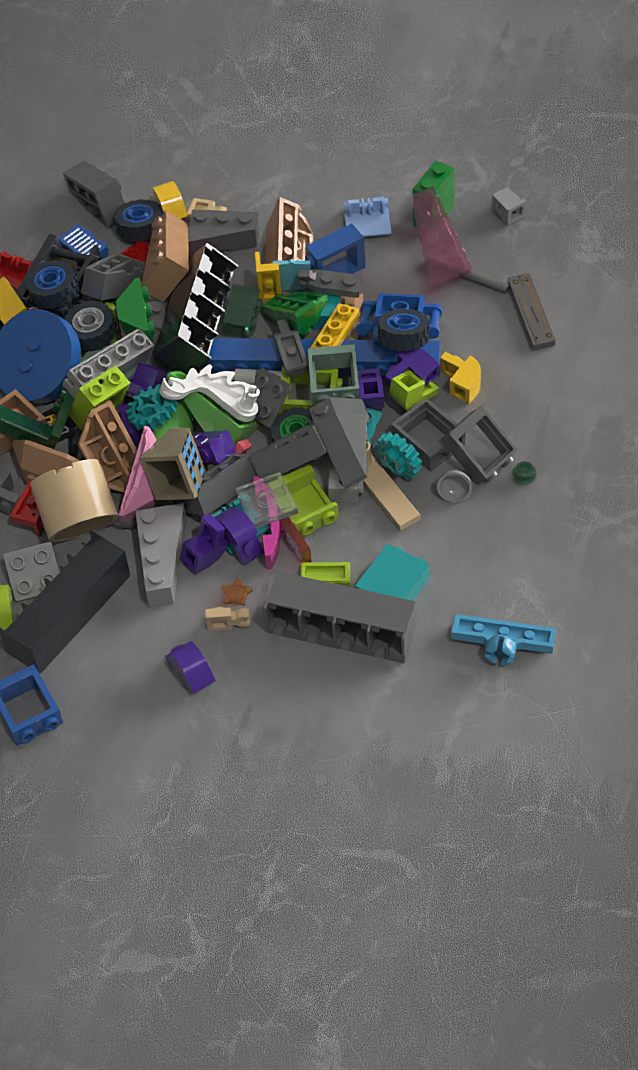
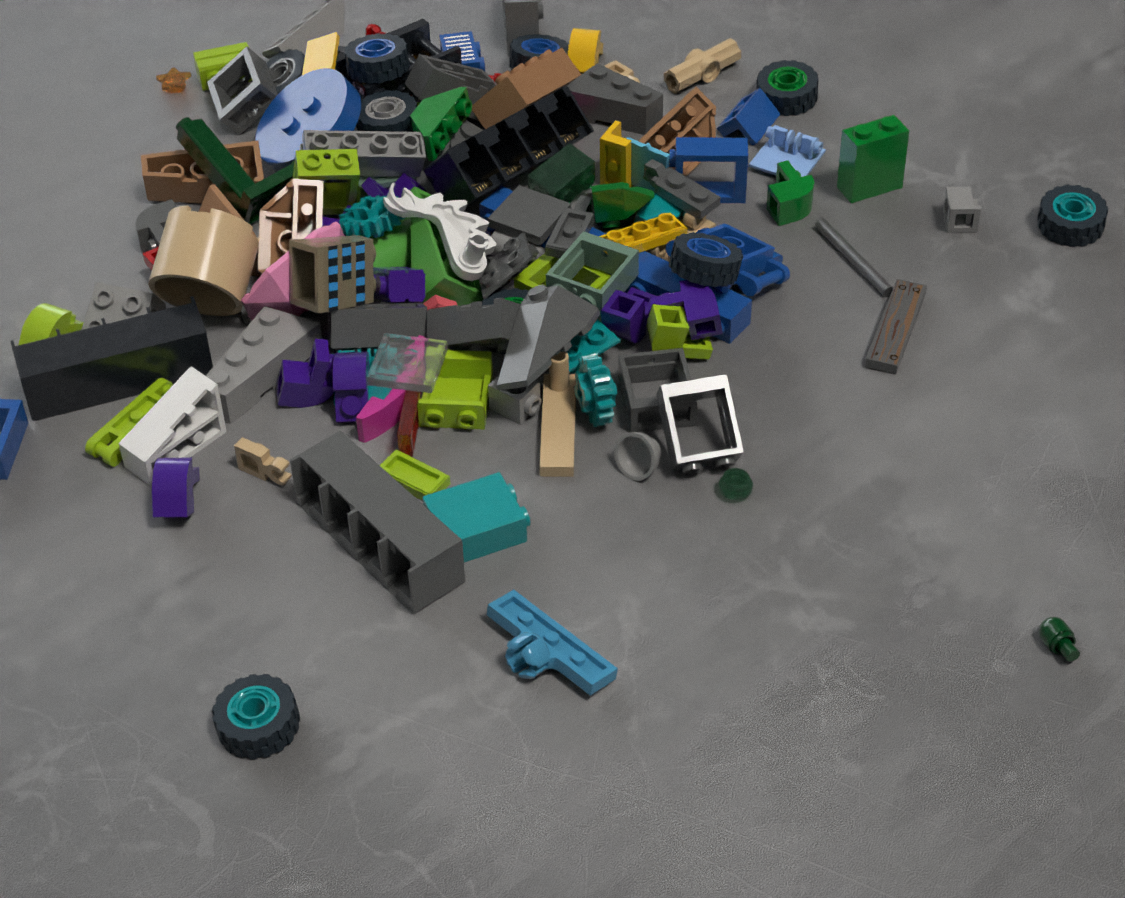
camera: 30 degrees right, 10 degrees down
(115, 635) = (123, 423): none -> lime plate
(152, 627) = (176, 426): none -> white wedge
(236, 599) = (295, 438): clear orange plate -> none
(250, 351) = (528, 213): none -> dark grey tile
(254, 173) = (702, 65): none -> tan piece
(318, 198) = (750, 116): none -> blue panel
(326, 164) = (789, 86): none -> black wheel
(379, 793) = (256, 716): none -> black wheel
(395, 247) = (790, 196): none -> green brick
(439, 243) = (832, 199): clear pink wedge -> none
(464, 375) = (753, 352): yellow brick -> none
(578, 176) = (1072, 215): none -> black wheel

